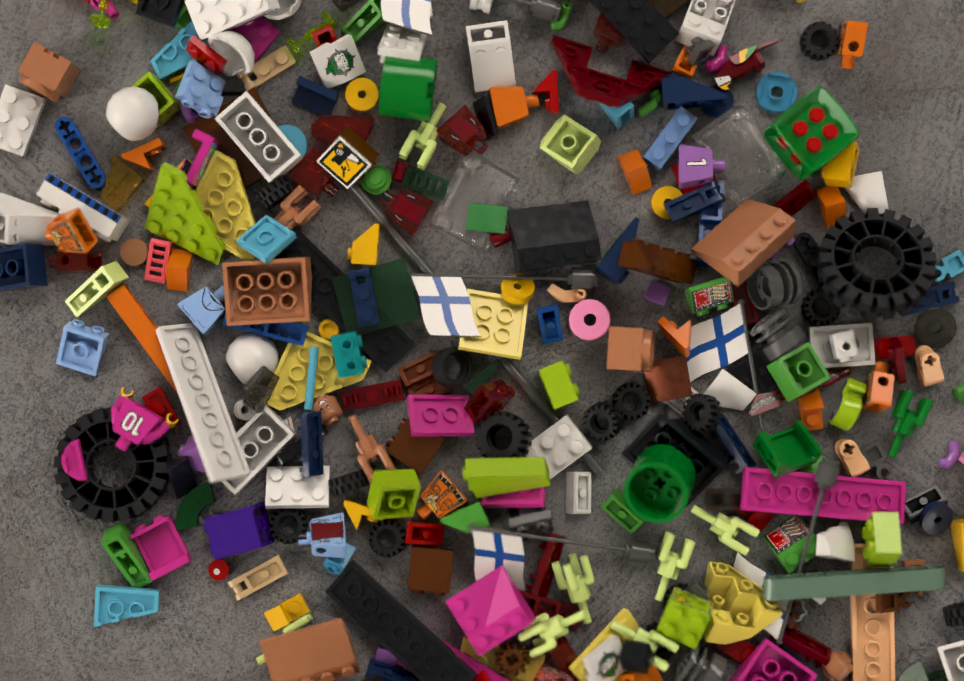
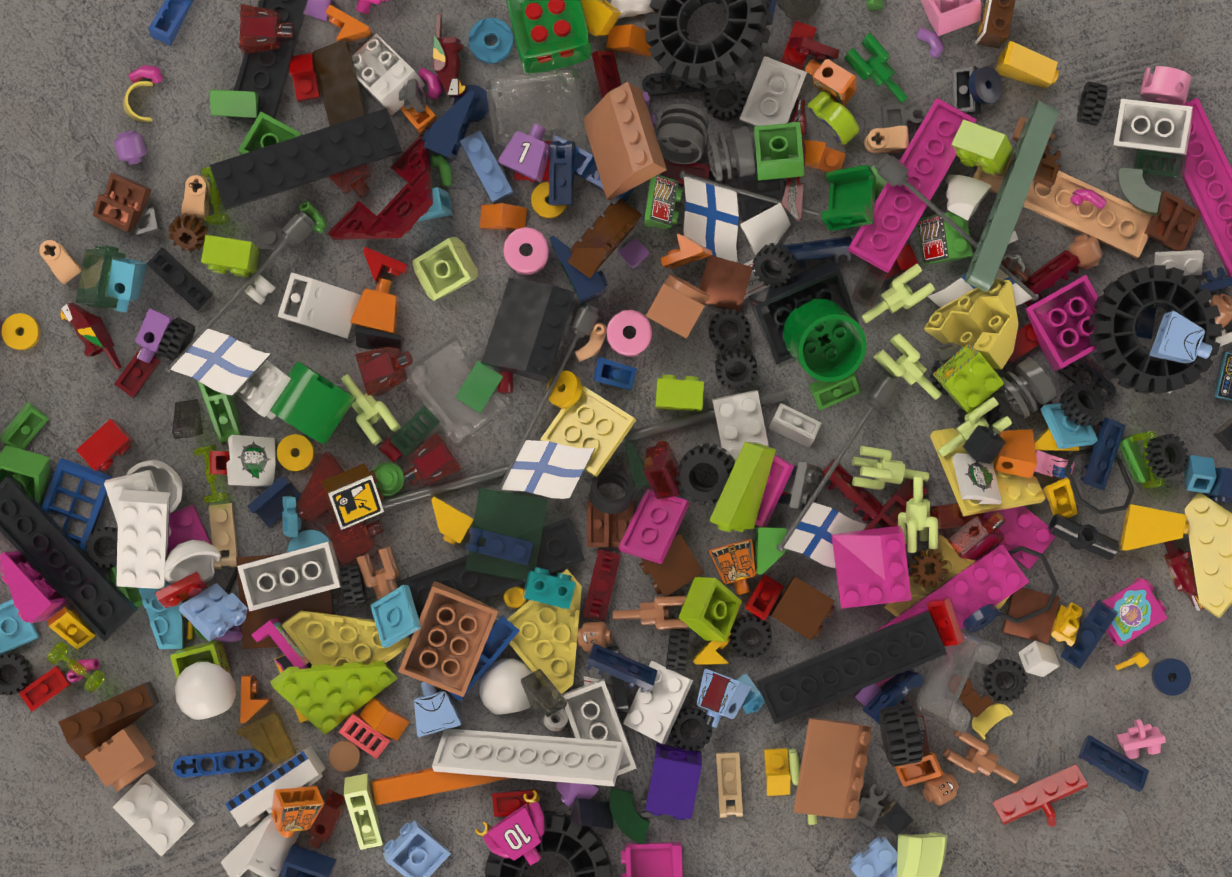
camera: 60 degrees left, 0 degrees up
(68, 41) = (102, 721): none -> reddish brown wedge
(219, 569) = (702, 819): red tile -> none
(305, 116) = (291, 522): none -> medium azure plate
(311, 377) = (556, 637): medium azure bar -> none
(614, 216) = (531, 264): none -> bright pink piece
(843, 345) = (774, 94): white brick -> none
(885, 647) = (1088, 195): none -> dark pink arm
(928, 366) = (833, 21): light nougat piece -> none

